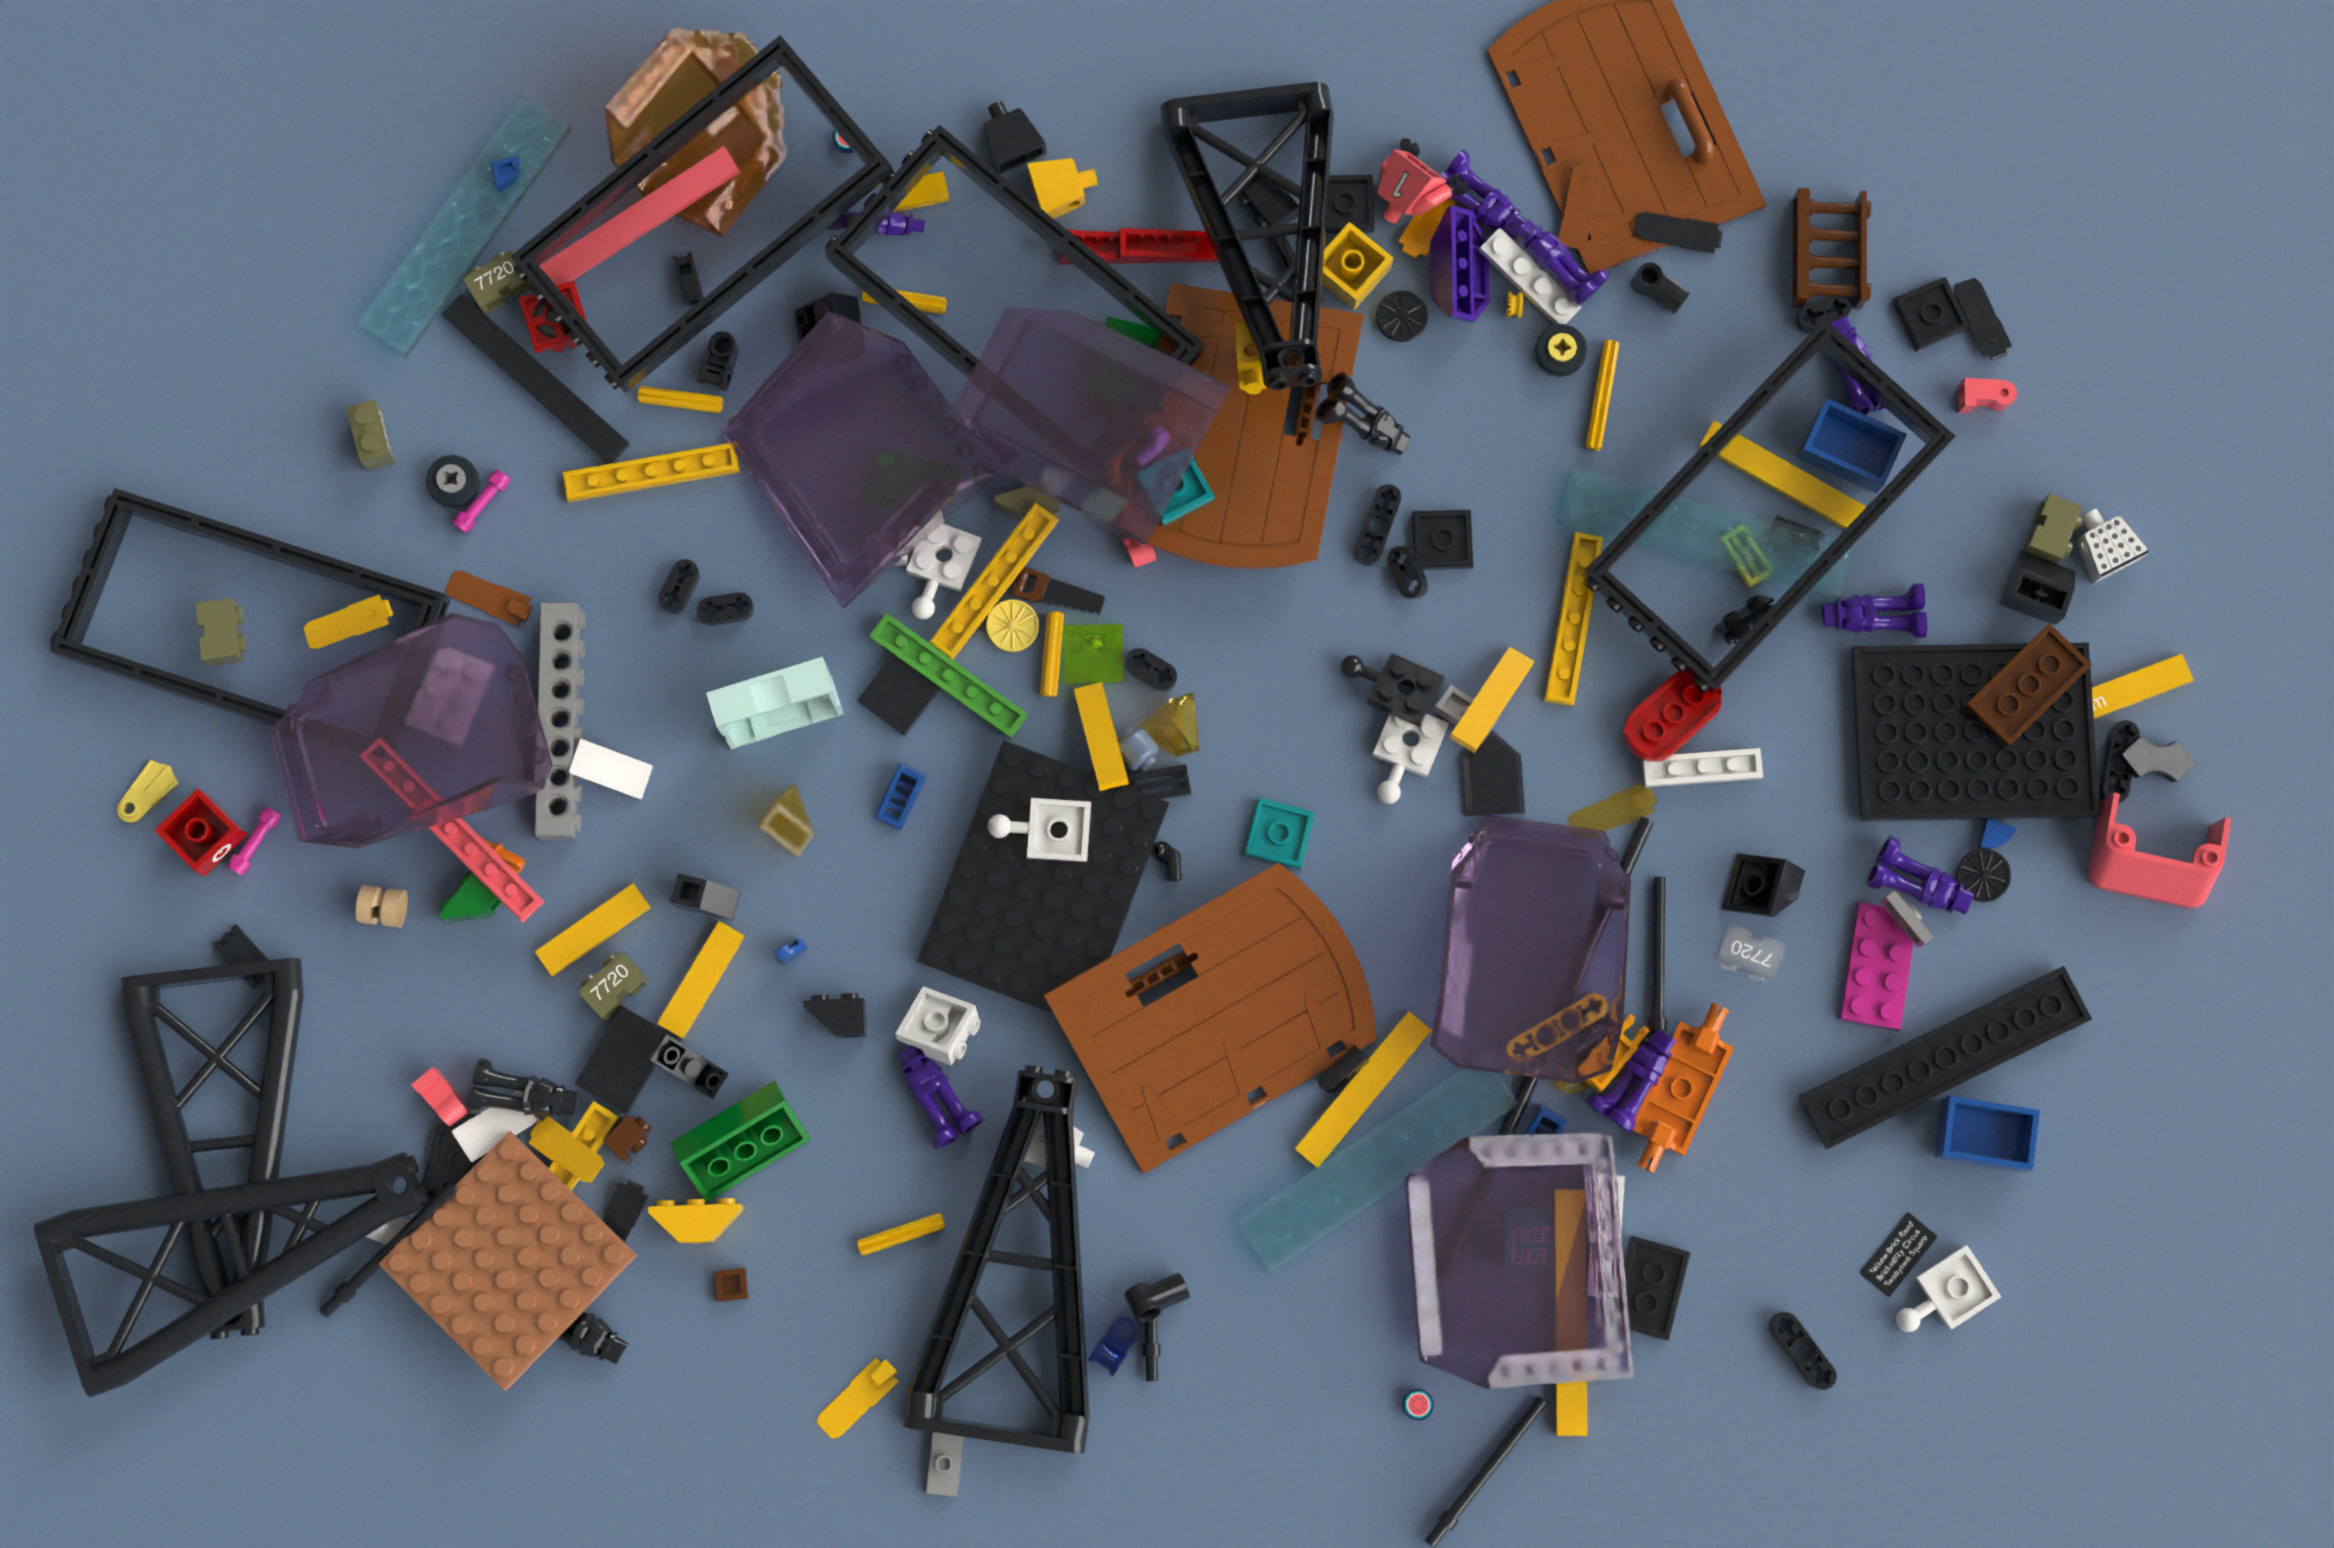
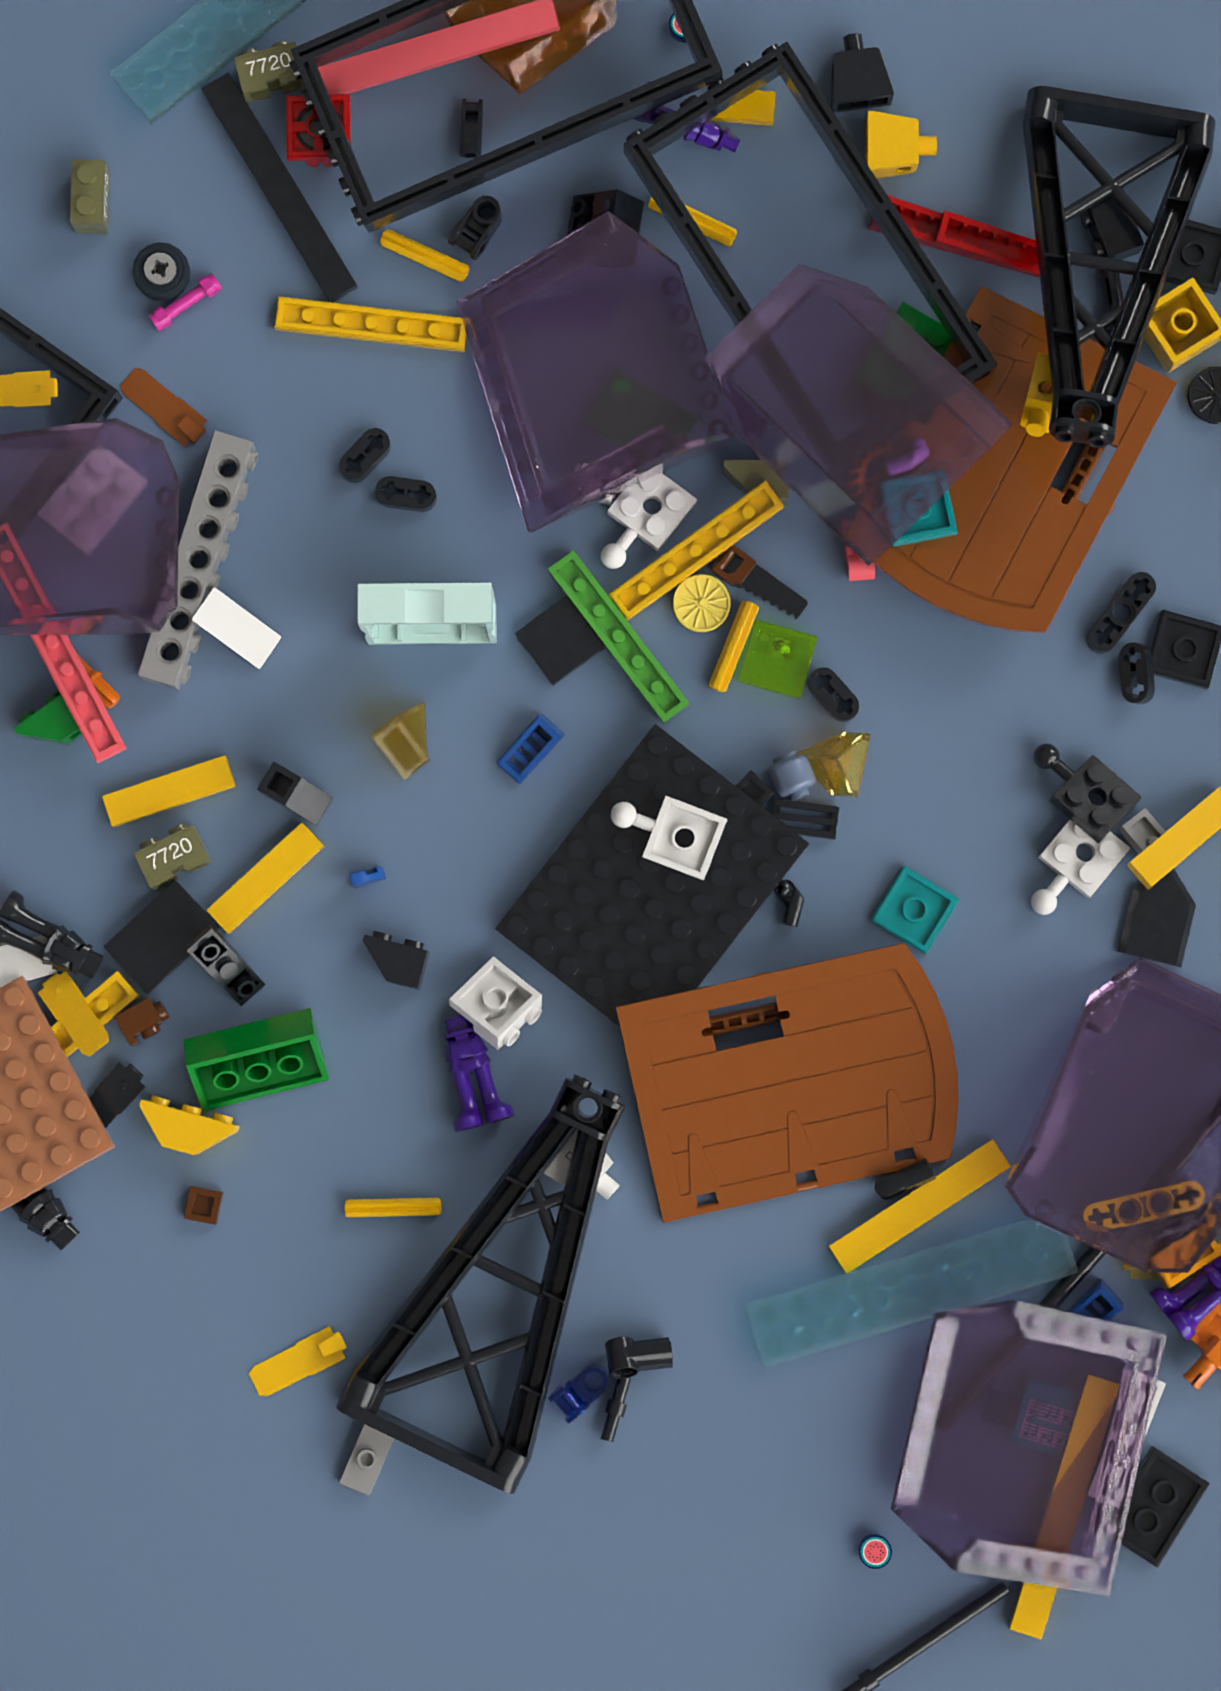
camera: 20 degrees right, 5 degrees up
(1101, 736) = (758, 751): yellow tile -> none
(1377, 425) = (1154, 506): black piece -> none

